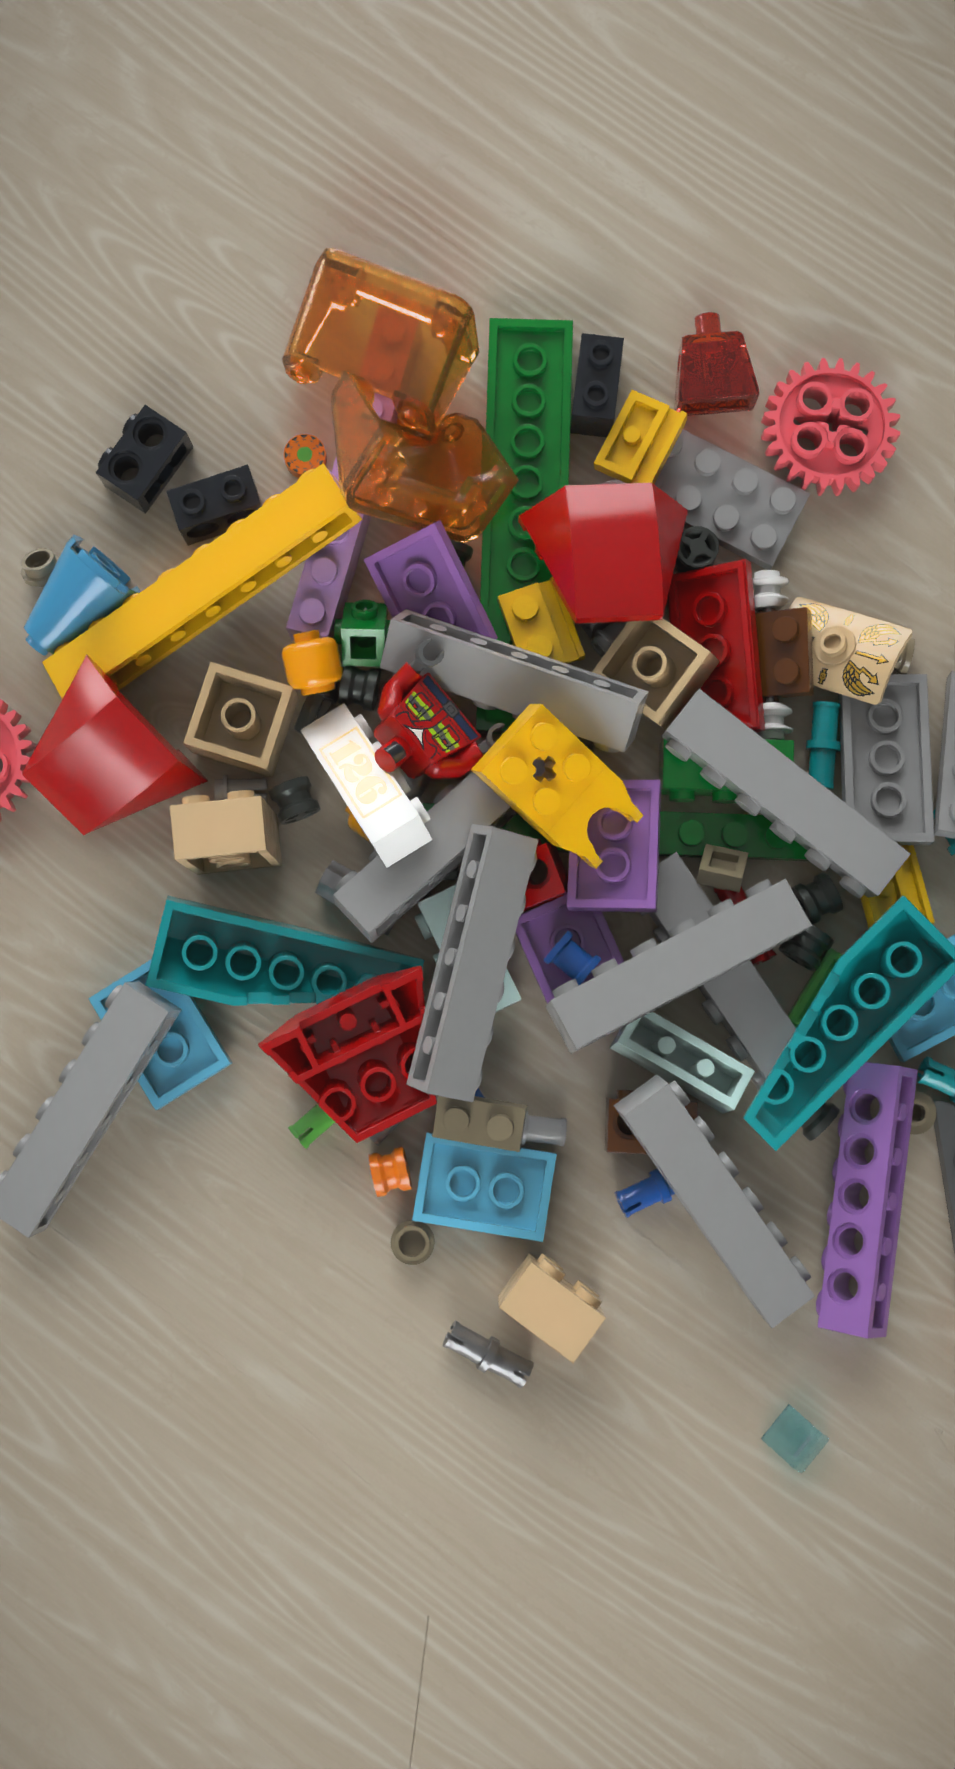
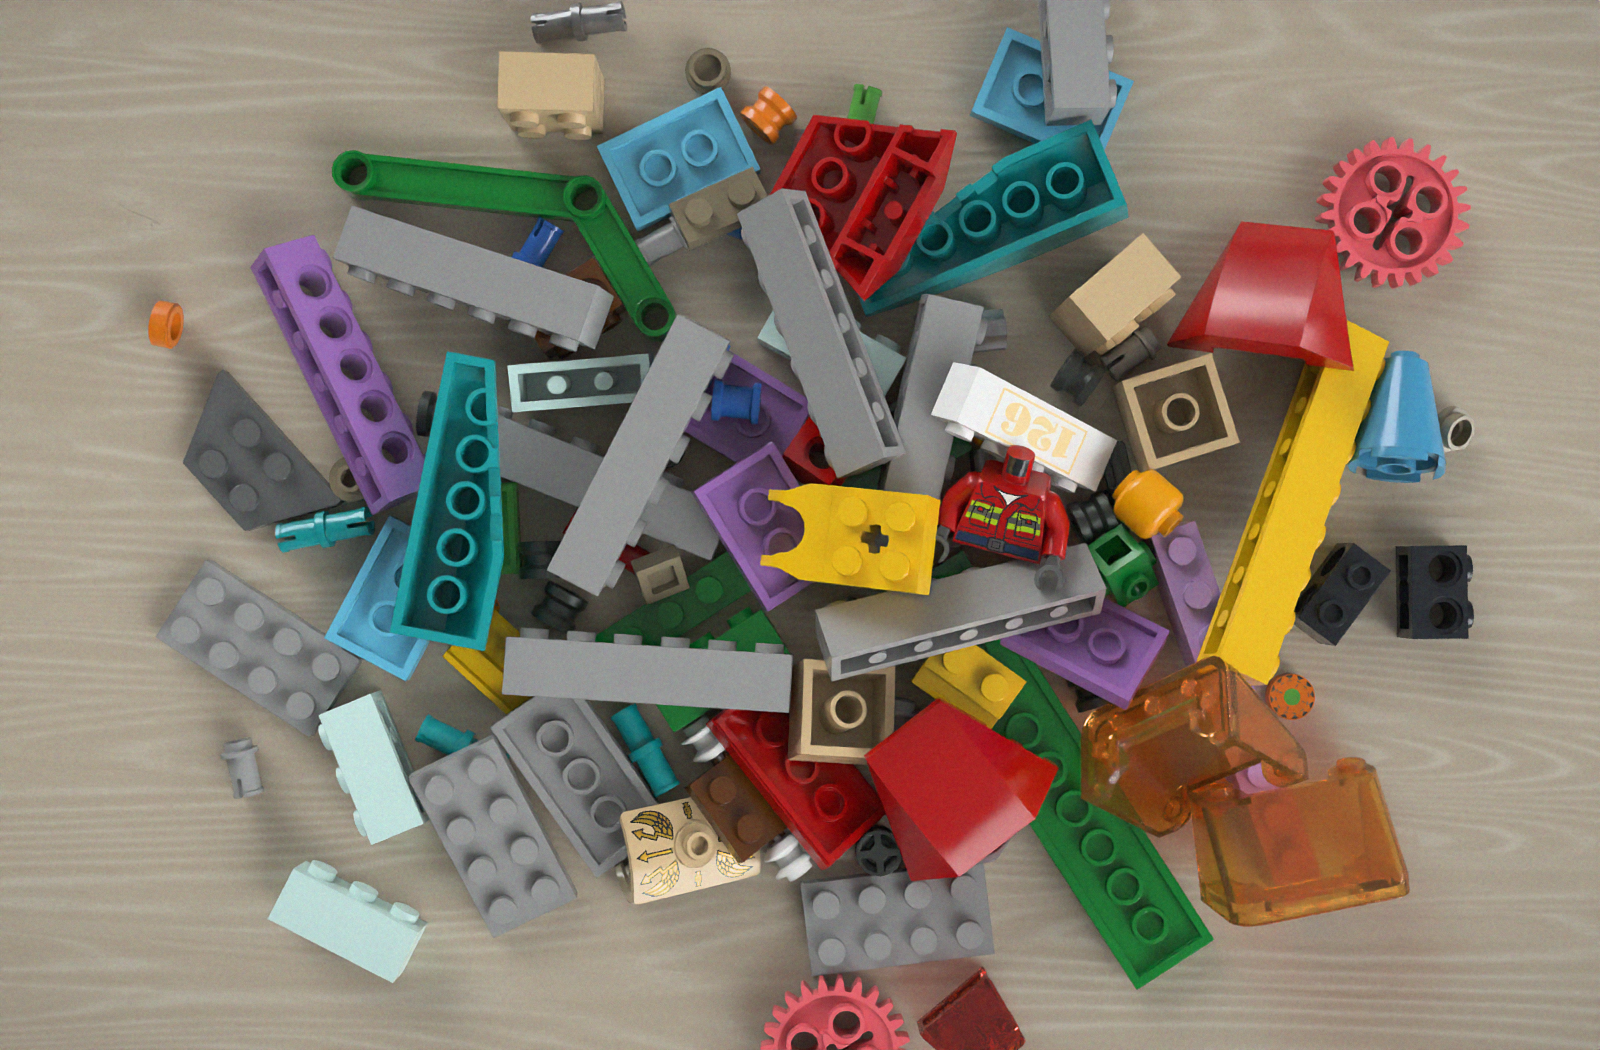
camera: 140 degrees right, 5 degrees up
(596, 385) = (1073, 942): black brick -> none
(629, 1245) = (517, 195): none -> green piece
(640, 440) = (997, 916): yellow plate -> none
(795, 1439) = (271, 132): clear light blue slope -> none

